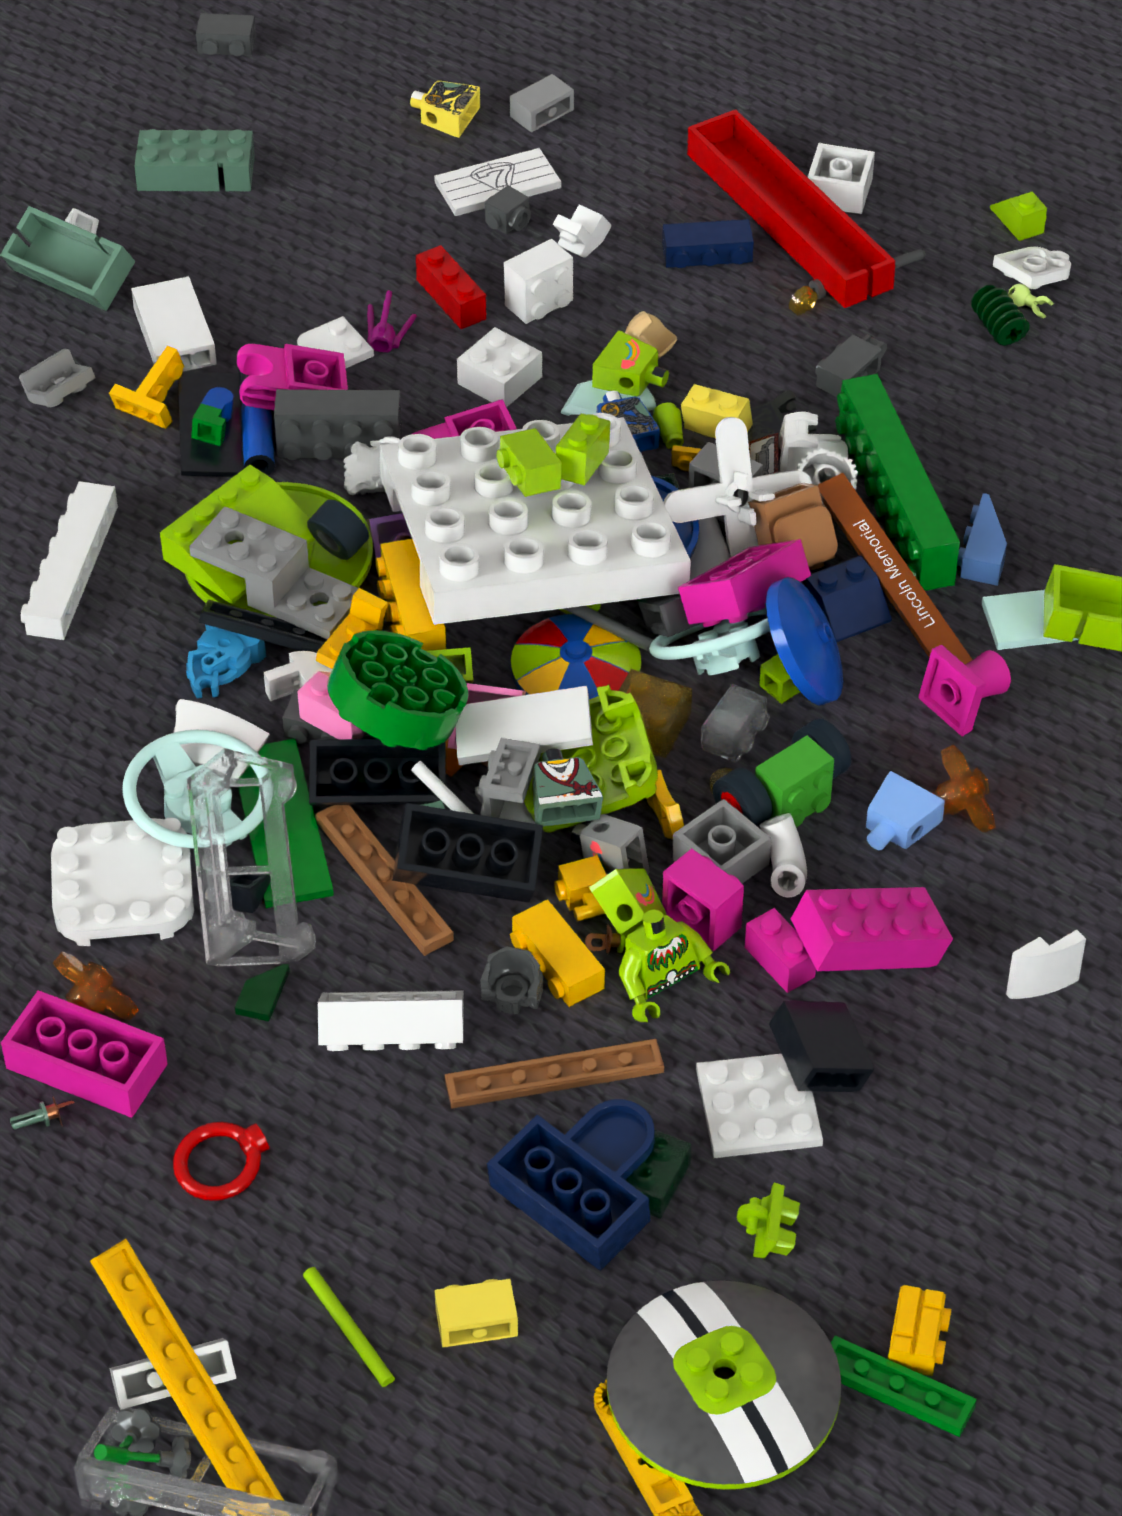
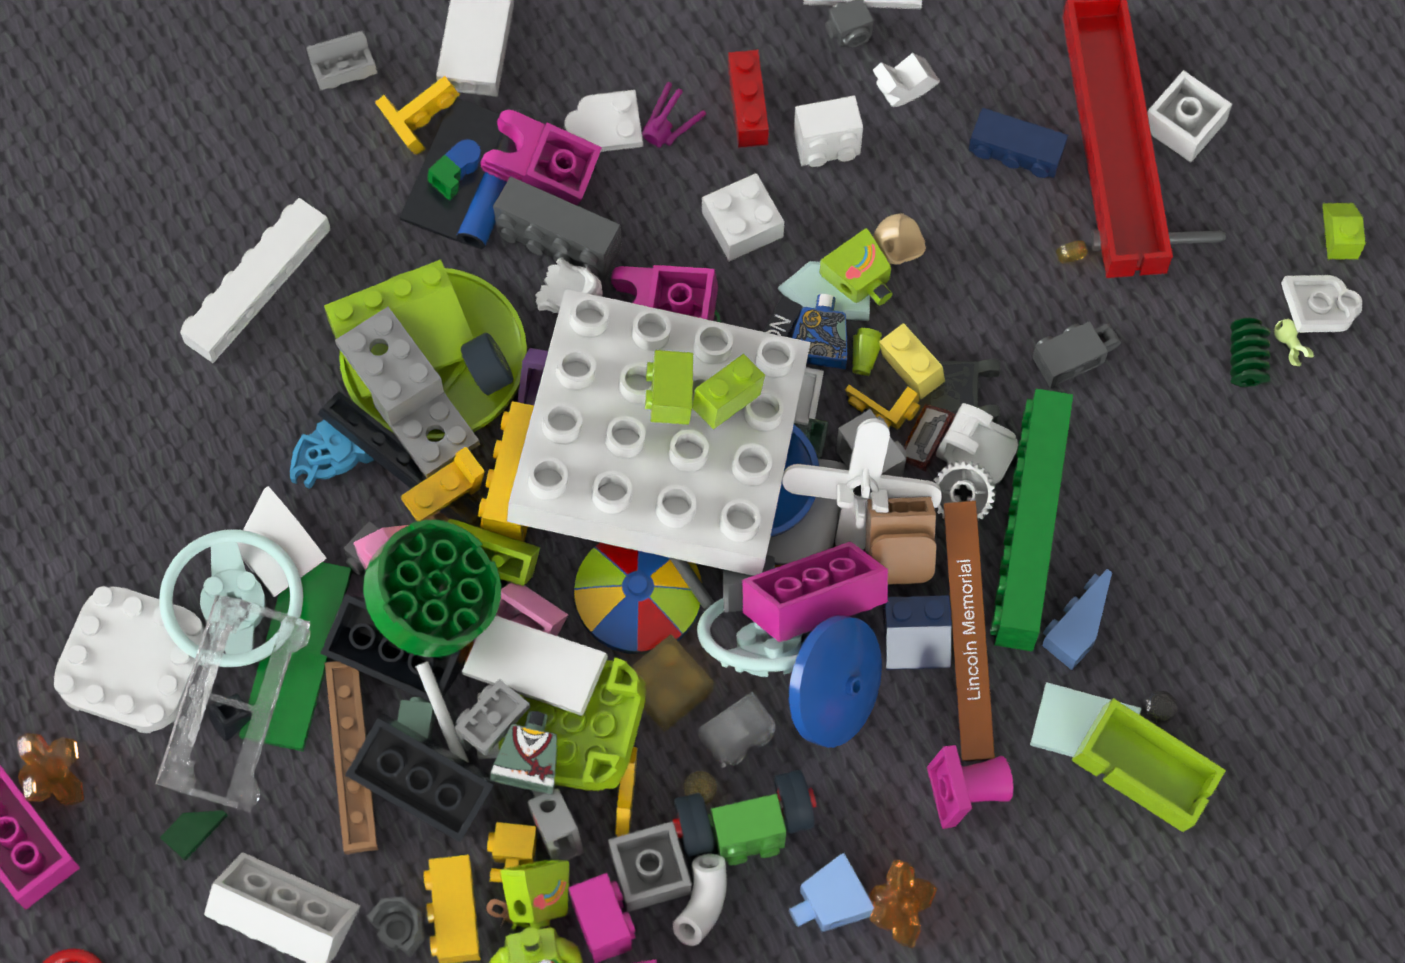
camera: 25 degrees right, 20 degrees up
(286, 678) = (386, 501): white brick -> none

